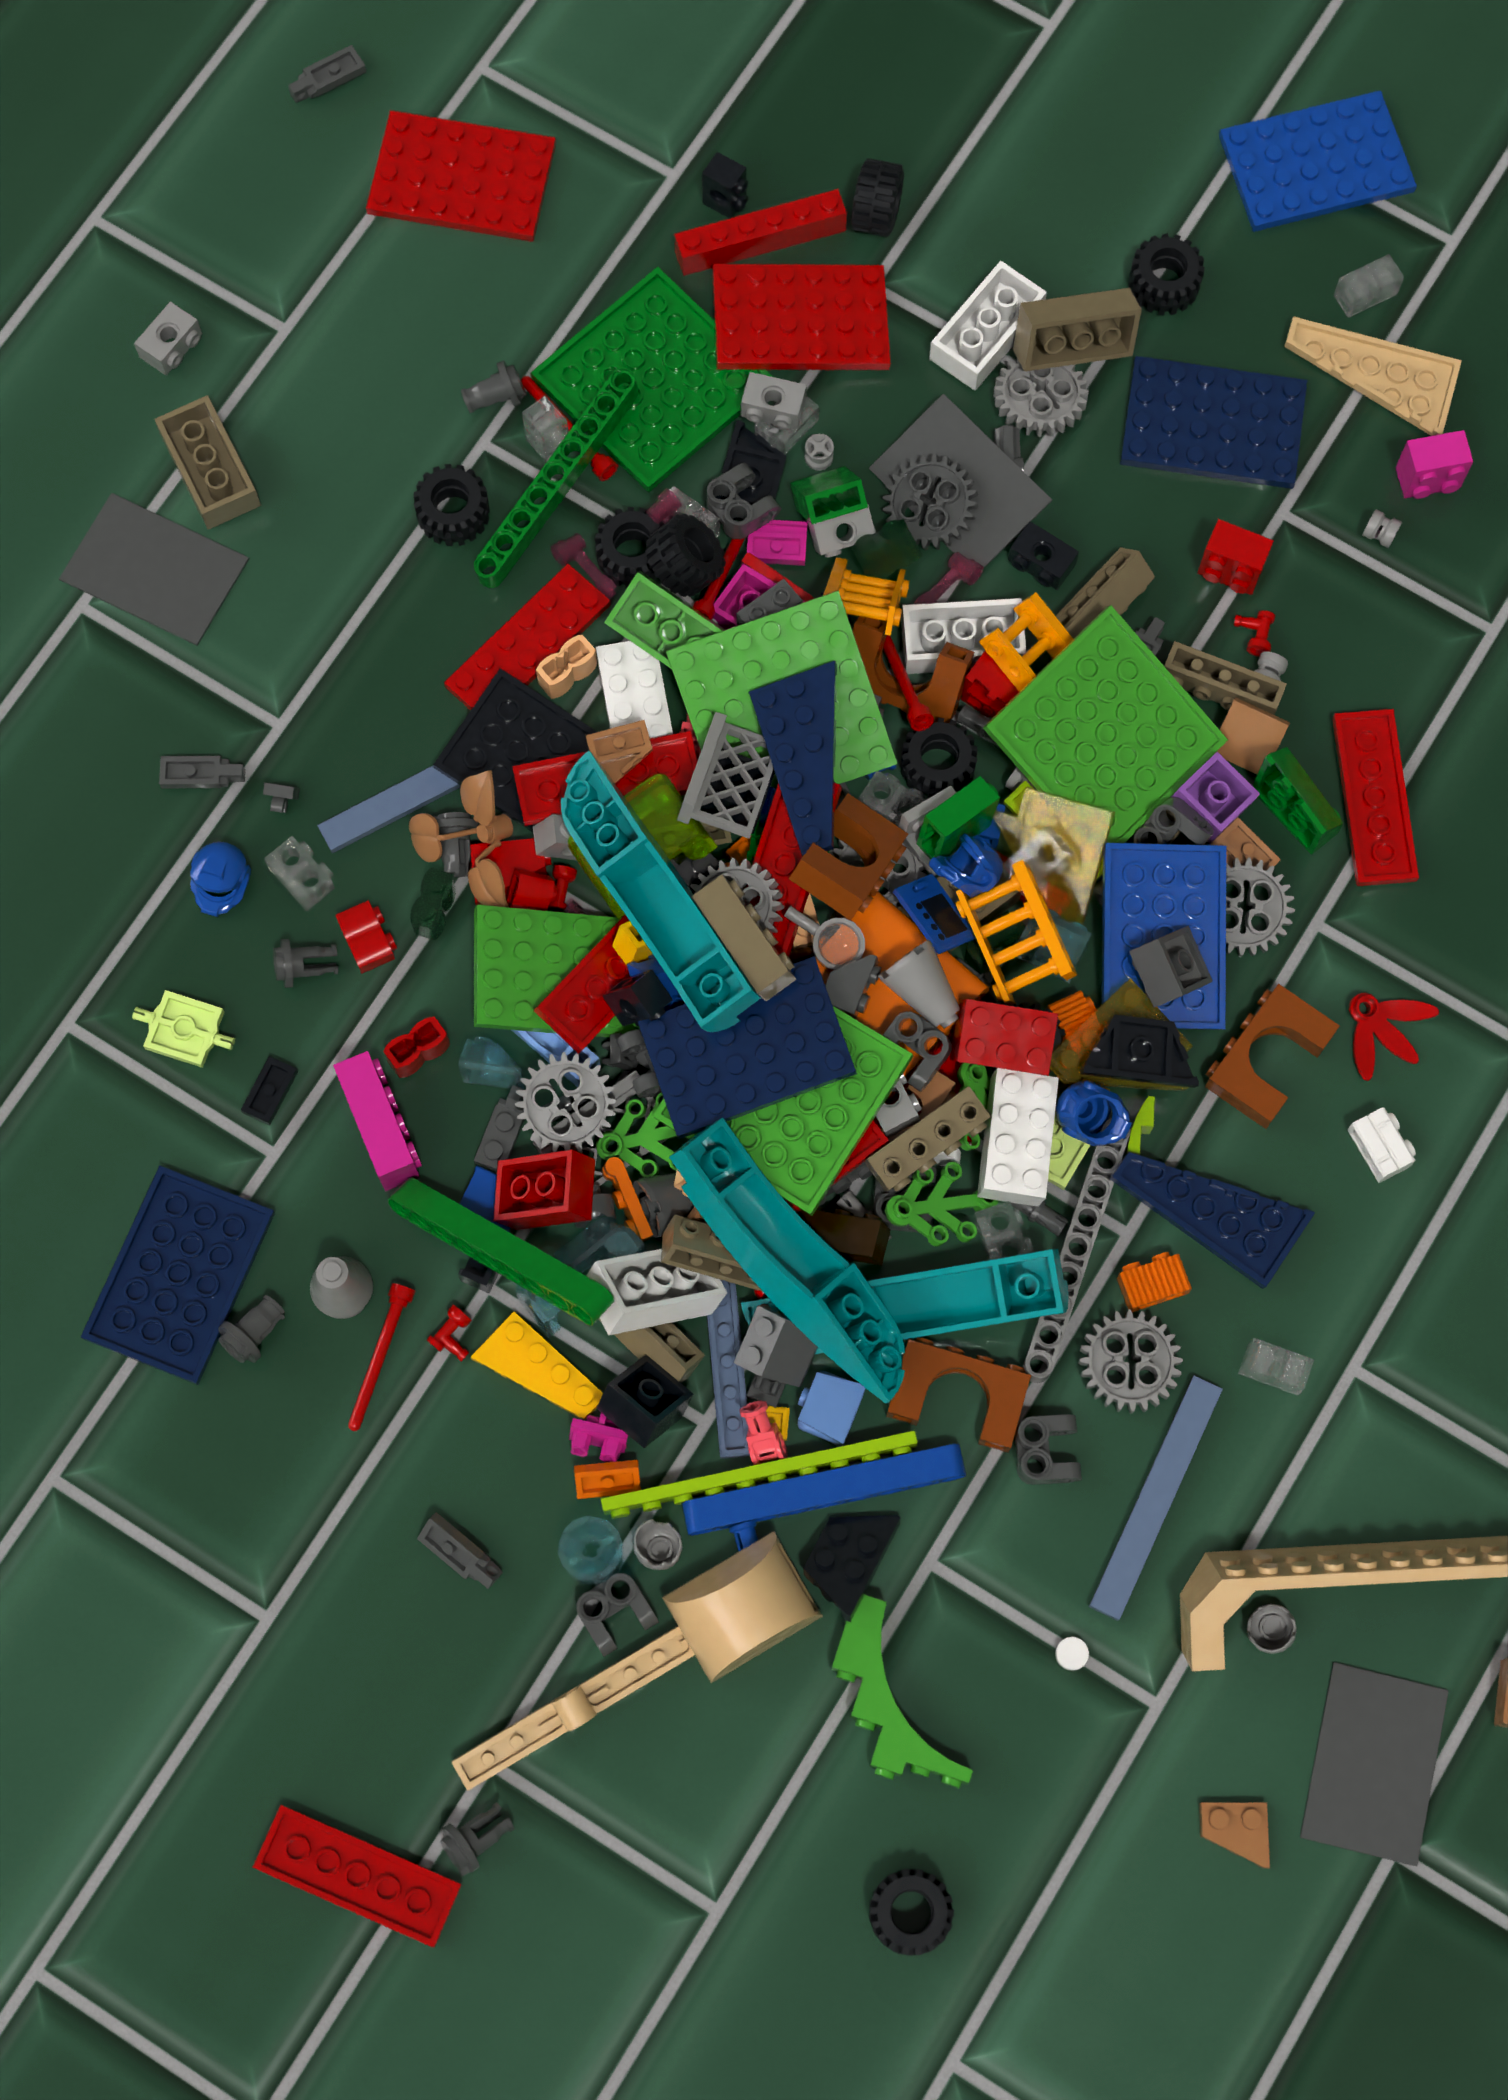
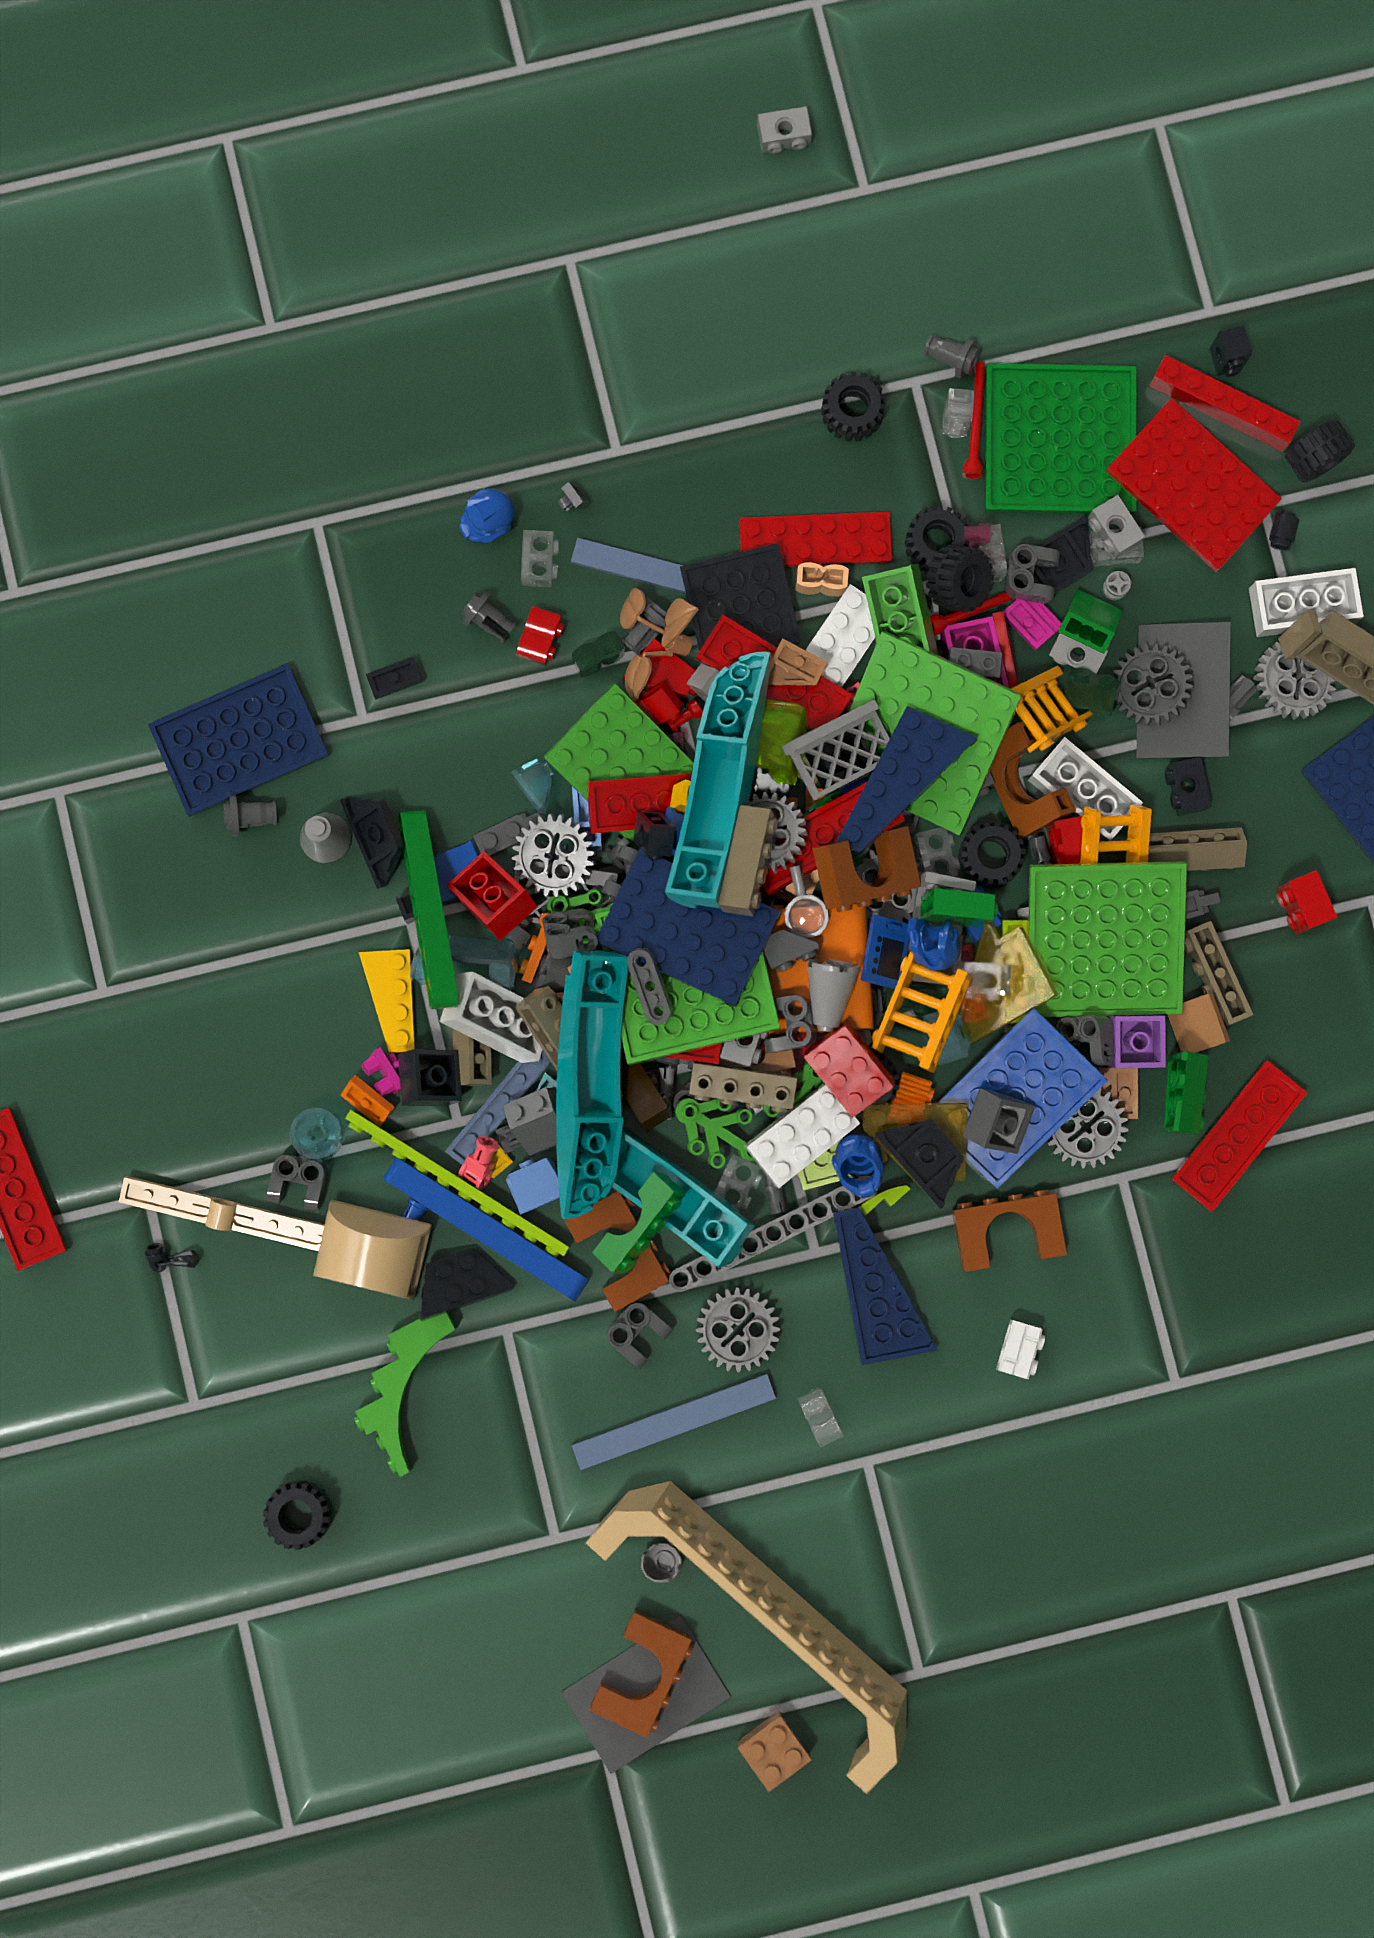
camera: 40 degrees right, 10 degrees up
(154, 569) = (635, 276): dark grey piece -> none
(183, 1028) = (380, 591): yellowish green plate -> none
(198, 772) = (538, 436): dark grey hinge -> none
(207, 462) = (729, 237): dark tan brick -> none
(327, 74) = (1054, 37): dark grey hinge -> none
(374, 1114) = (436, 758): dark pink brick -> none
(386, 1239) = (375, 835): none -> black wing
(399, 1299) = (350, 878): red piece -> none
(423, 1043) = (496, 734): red brick -> none
(443, 1338) = (353, 926): red piece -> none
(458, 1551) = (243, 1060): dark grey hinge -> none
(461, 176) = (1073, 187): red plate -> none
(464, 1846) = (86, 1230): dark grey piece -> none
(549, 1803) = (157, 1254): none -> black piece
(556, 490) = (943, 441): green beam -> none
(572, 550) = (900, 505): clear pink brick -> none
(646, 1161) = (562, 934): none -> dark grey piece
(657, 1545) = (358, 1167): light grey hair -> none
(776, 1135) = (649, 998): none -> dark grey plate
(911, 287) = (1284, 531): none -> black brick
(918, 714) = (1003, 817): red piece -> none
(954, 1306) = (659, 1199): none -> green arch
(961, 568) = (1130, 747): clear pink brick -> none
(1011, 350) = (1299, 635): none -> dark tan tile
(1072, 1653) = (534, 1462): white tile -> none
(1153, 1282) = (798, 1297): orange brick -> none
(1237, 1828) = (529, 1652): medium nougat wing -> none
(1262, 625) = (1266, 971): red piece -> none
(1272, 665) = (1257, 993): light grey wheel -> none
(1388, 1778) = (640, 1711): none -> dark orange arch
(1390, 1037) = (1095, 1285): red plant -> none

